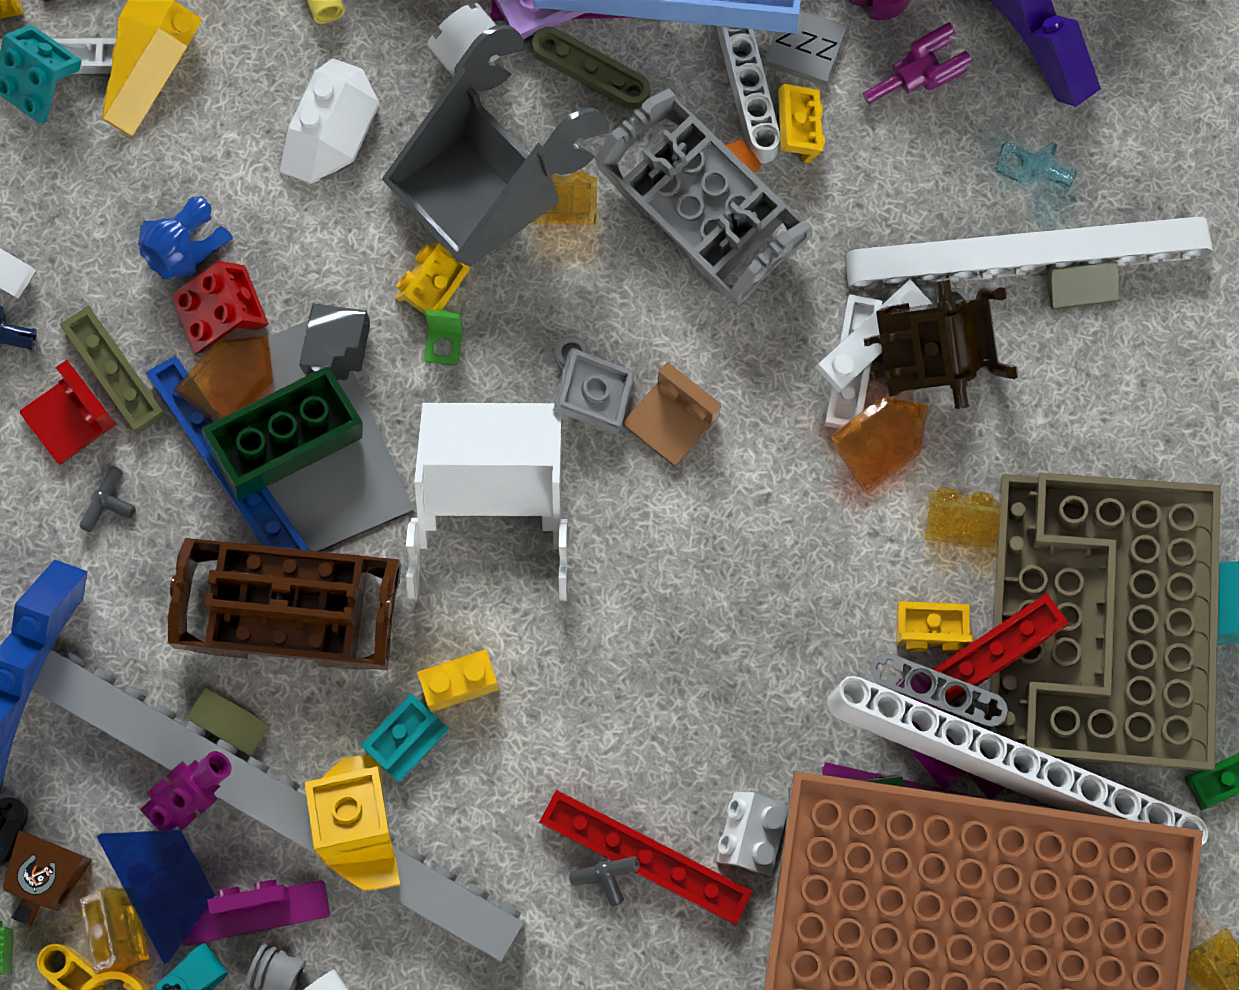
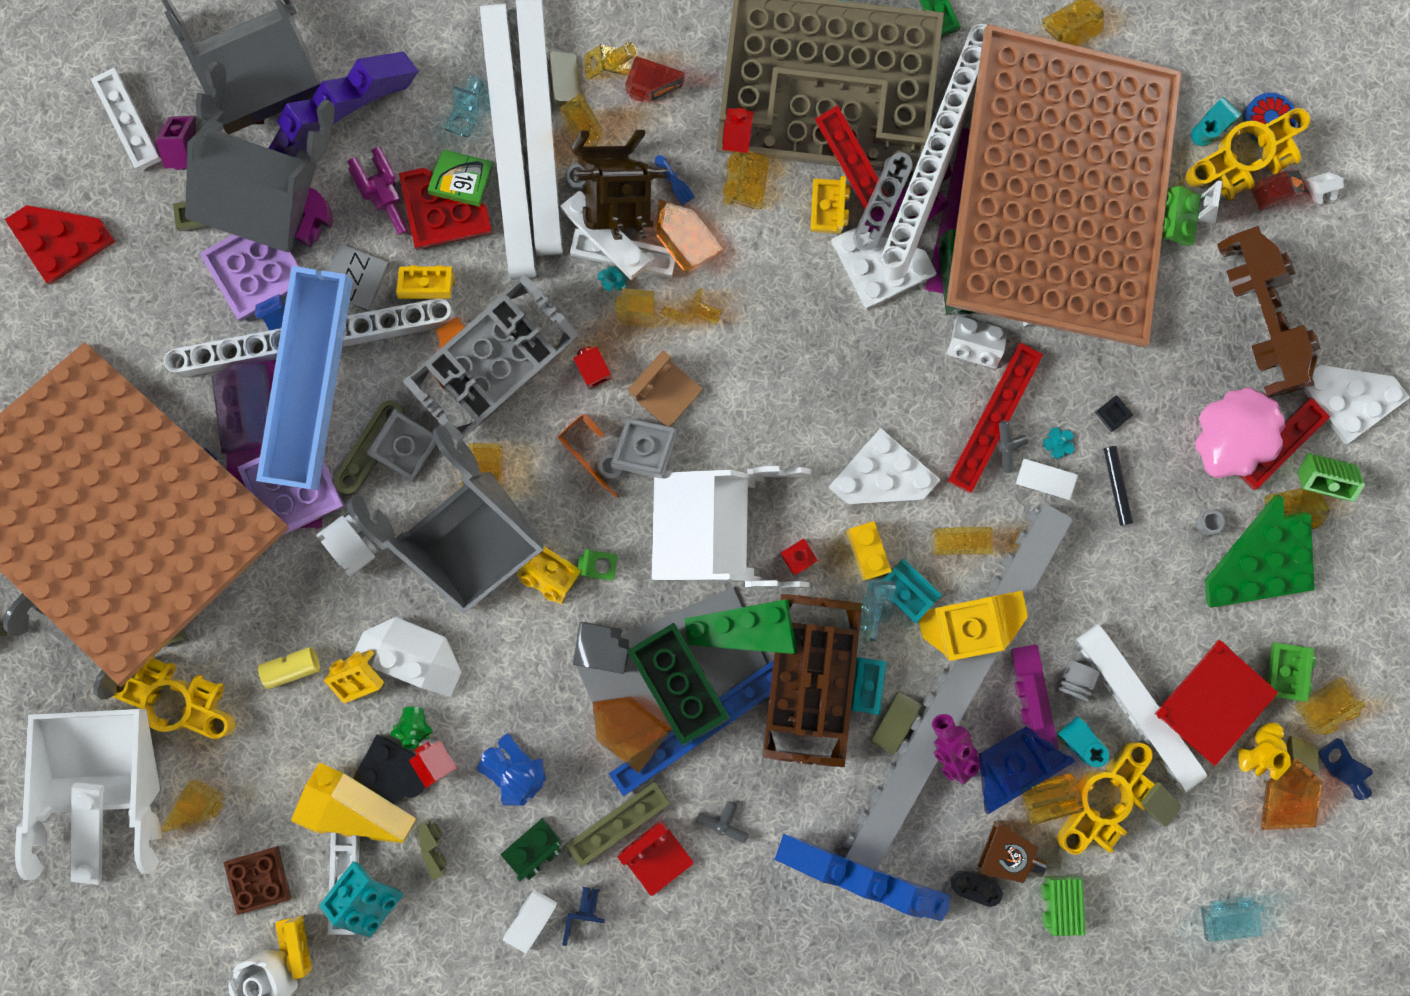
camera: 90 degrees left, 10 degrees up
(87, 269) = (532, 849): none -> dark green bracket
(106, 147) = (430, 838): none -> olive slope
(191, 104) = (388, 771): none -> black plate
(197, 147) = (432, 763): none -> brick
(218, 304) = (566, 741): red bracket -> none
(241, 123) = (412, 727): none -> green rock
(279, 681) = (868, 685): none -> teal plate
(303, 52) = (353, 677): none -> yellow bracket
(354, 517) = (753, 628): none -> green wing
(384, 687) = (876, 607): none -> clear light blue bracket
(450, 588) = (798, 557): none -> red brick
(471, 812) = (963, 541): none -> clear yellow slope
(559, 930) = (1047, 479): none -> white slope
(564, 705) = (883, 474): none -> white plate
(598, 90) = (402, 445): none -> light grey tile
(613, 951) = (1059, 442): none -> teal plant
(624, 324) = (600, 433): none -> orange piece
(699, 325) = (592, 366): none -> red brick
(777, 374) = (636, 308): none -> clear yellow brick
(782, 456) = (697, 309): none -> clear yellow bracket
(817, 347) = (612, 278): none -> teal plant
(848, 743) = (867, 271): none -> white plate
(896, 140) = (439, 219): none -> red plate
(941, 161) = (460, 177): none -> slope
(947, 432) = (679, 187): none -> blue piece
(997, 215) = (508, 141): none -> white beam
(1023, 494) = (737, 130): none -> red brick
(1024, 301) = (579, 116): none -> clear yellow slope
(1089, 391) = (652, 80): none -> clear red slope
(1112, 340) = (610, 59): none -> clear yellow bracket

